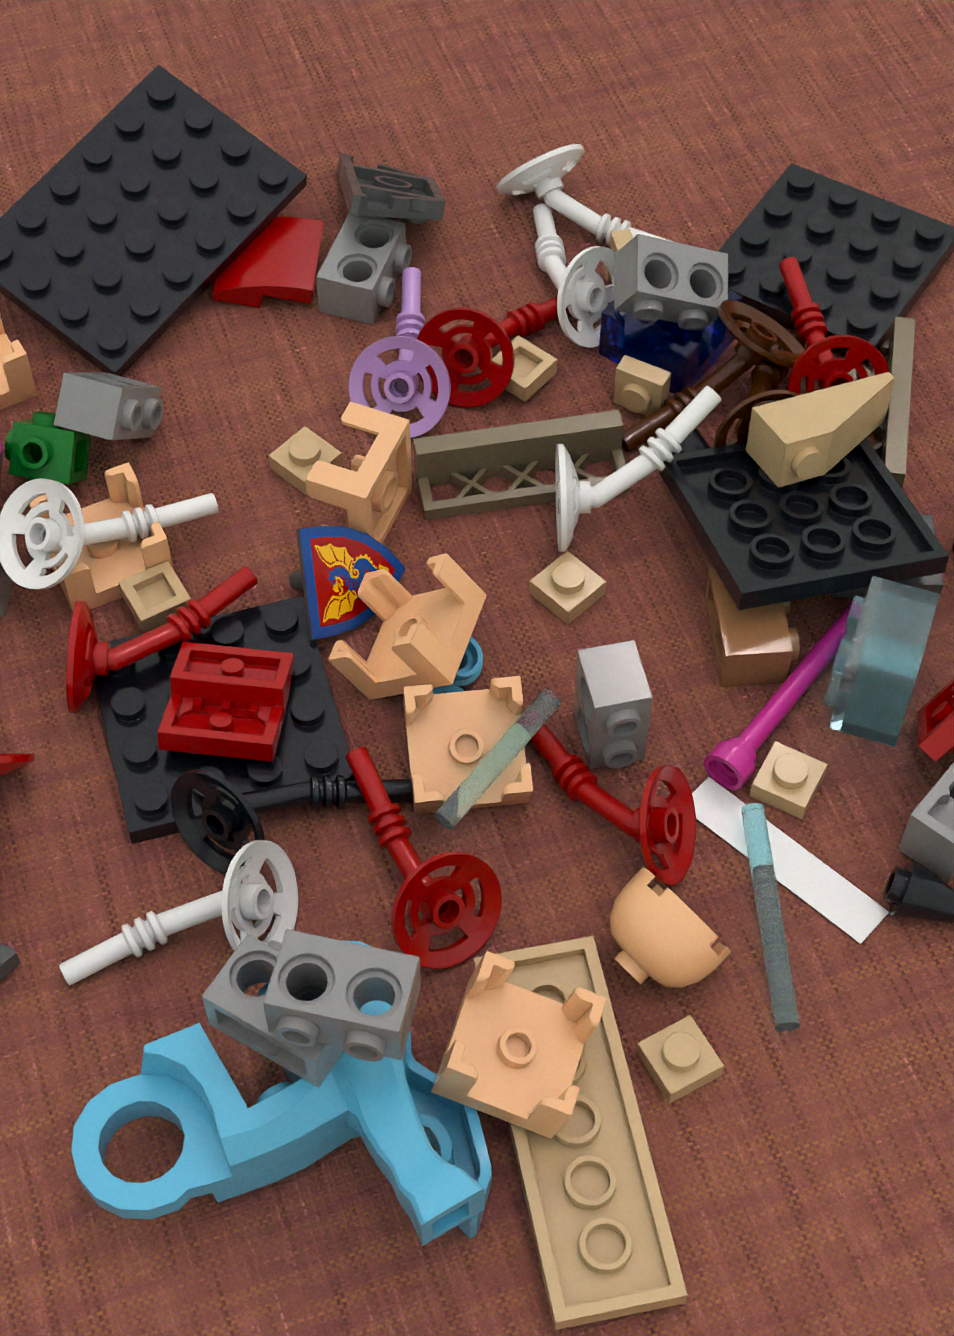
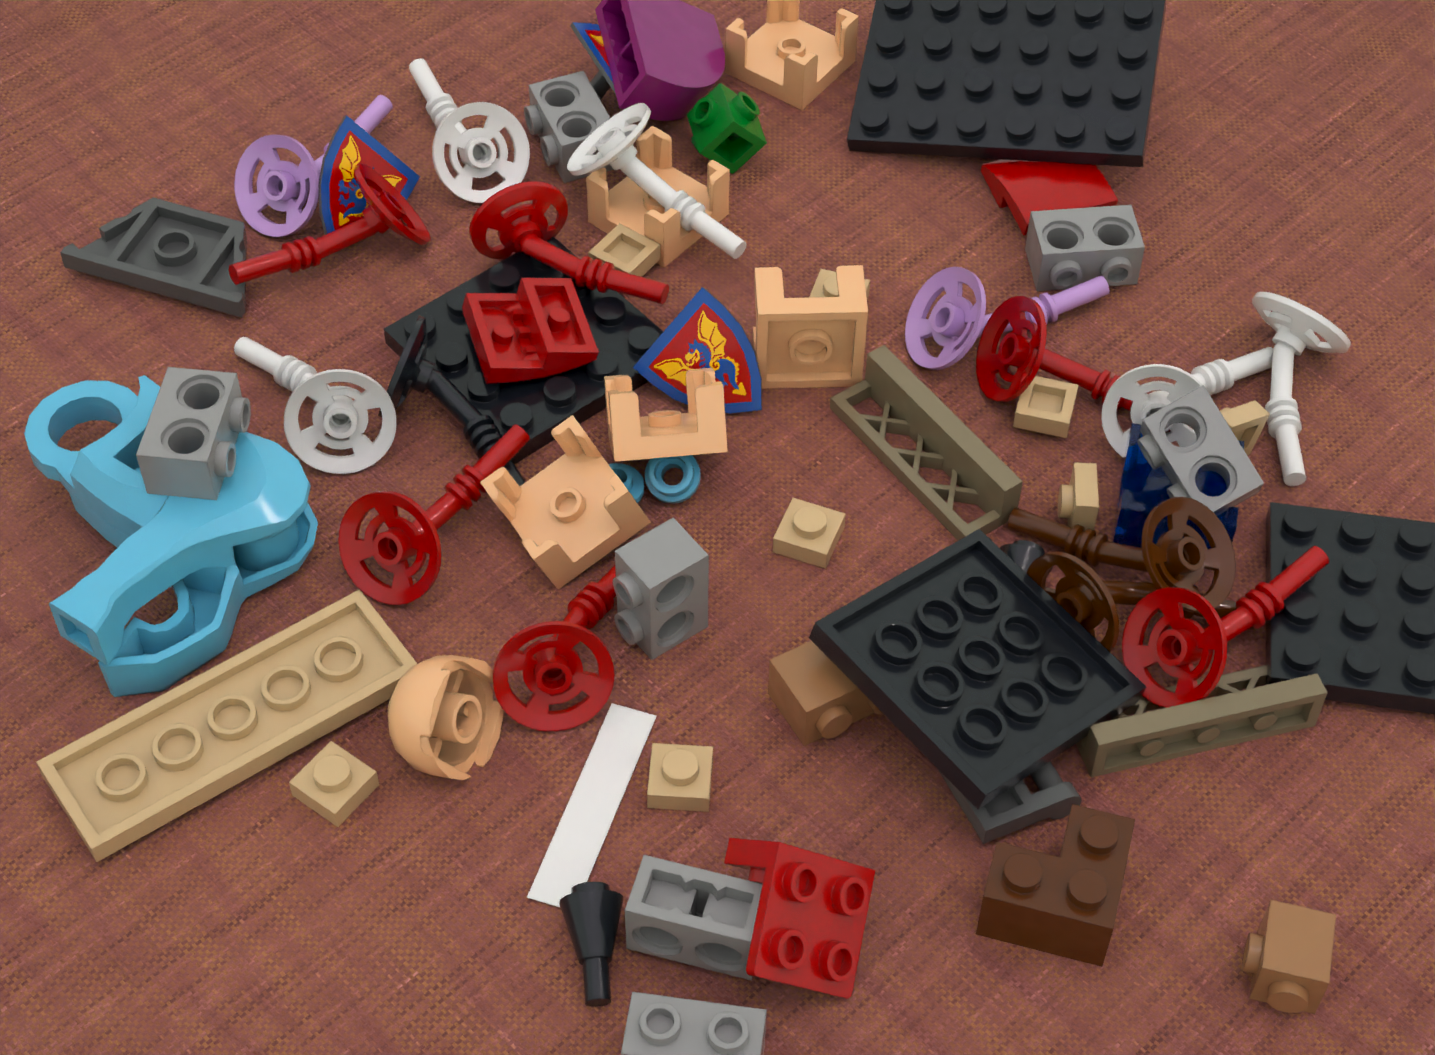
camera: 65 degrees right, 5 degrees down
(108, 405) = (786, 136): light grey brick -> none
(350, 978) = (182, 438): light grey brick -> none
(389, 192) = (1175, 221): dark grey wing -> none
(497, 759) = (556, 526): clear light blue bar -> none
(516, 1049) = (259, 631): light nougat panel -> none
(578, 497) = (895, 483): white dish -> none
(734, 760) = (677, 722): dark pink piece -> none
(770, 918) = (515, 806): clear light blue bar -> none
(816, 429) = (1091, 639): tan slope -> none
(880, 660) = (839, 788): clear light blue brick -> none

